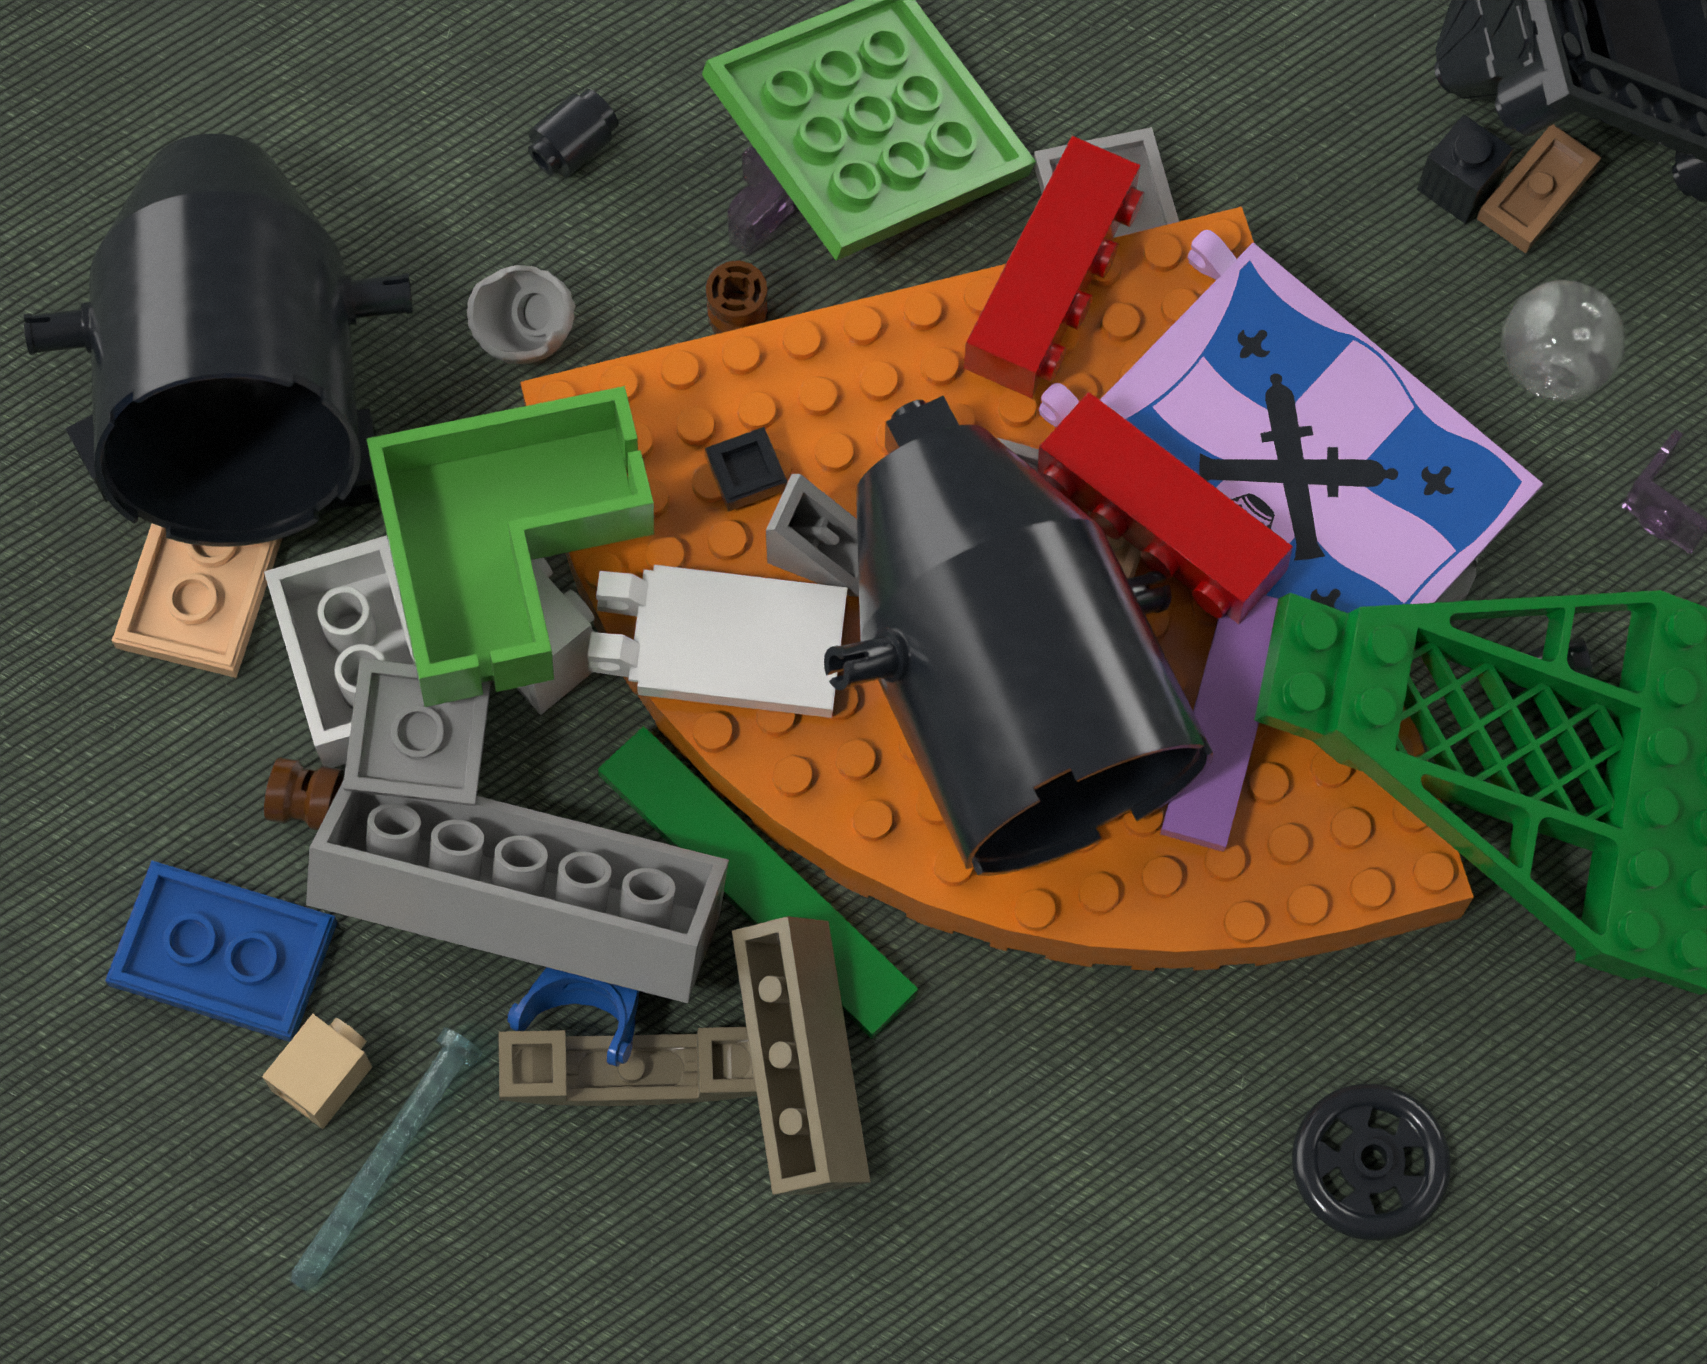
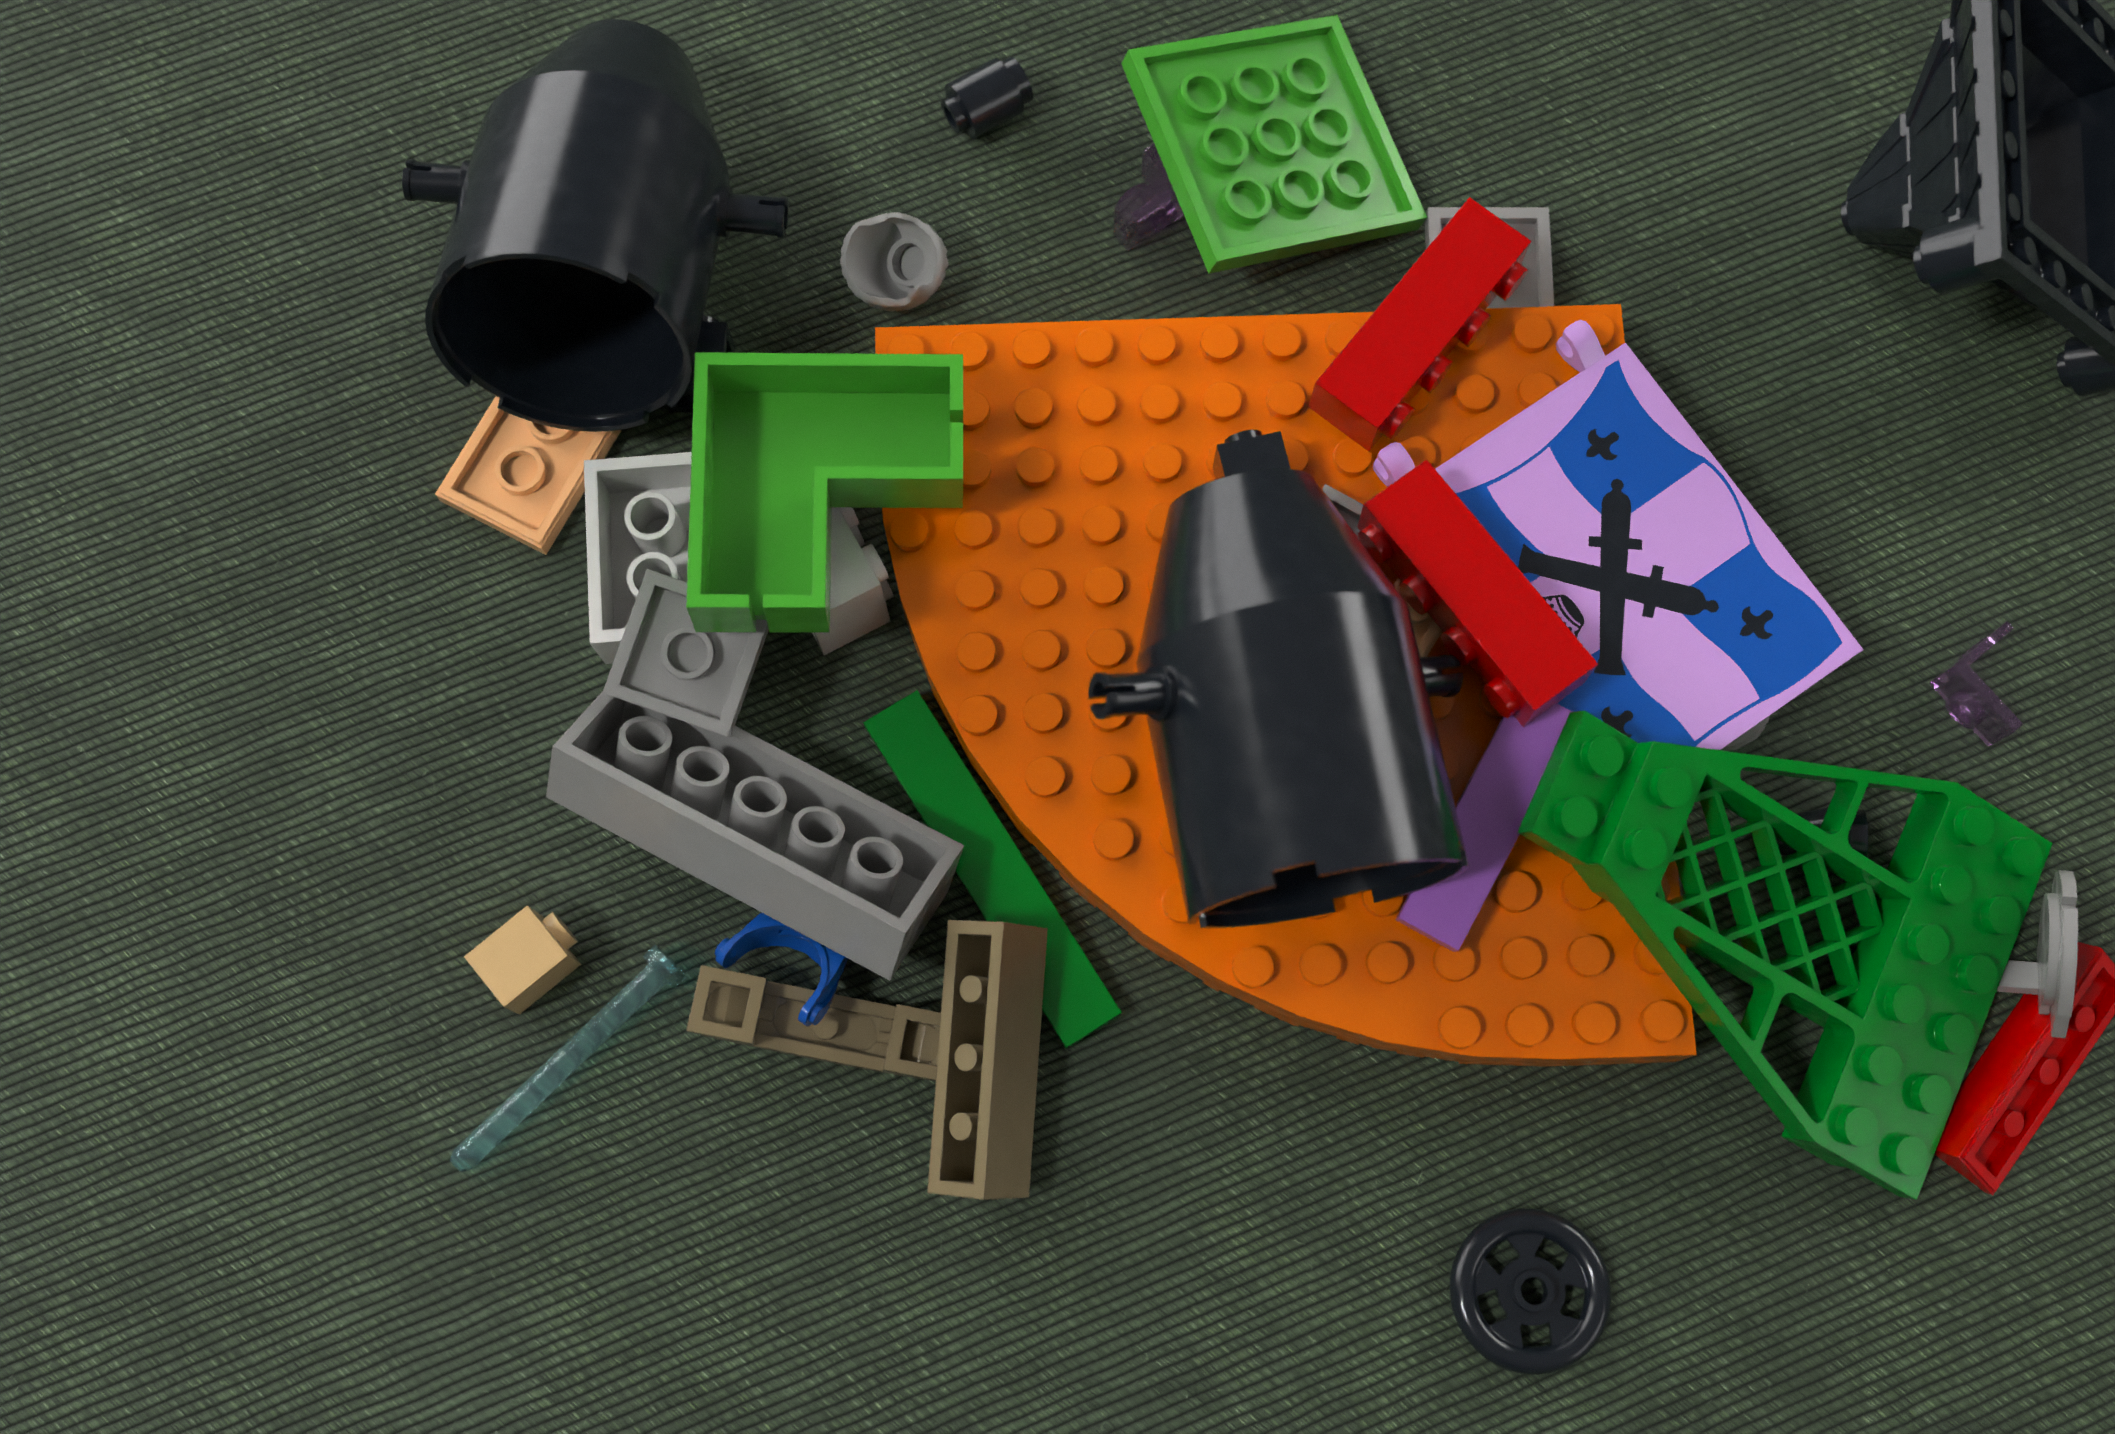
camera: 15 degrees right, 5 degrees up
(222, 951) = (465, 819): blue tile -> none
(300, 792) = (569, 680): reddish brown wheel -> none
(722, 638) = (1007, 624): white tile -> none
(735, 310) = (1105, 301): reddish brown wheel -> none
(746, 469) = (1071, 461): black tile -> none
(813, 537) = (1118, 543): light grey slope -> none
(1464, 169) = (1850, 313): black brick -> none
(1538, 188) = (1918, 348): medium nougat plate -> none
(1562, 341) = (1911, 506): clear helmet -> none

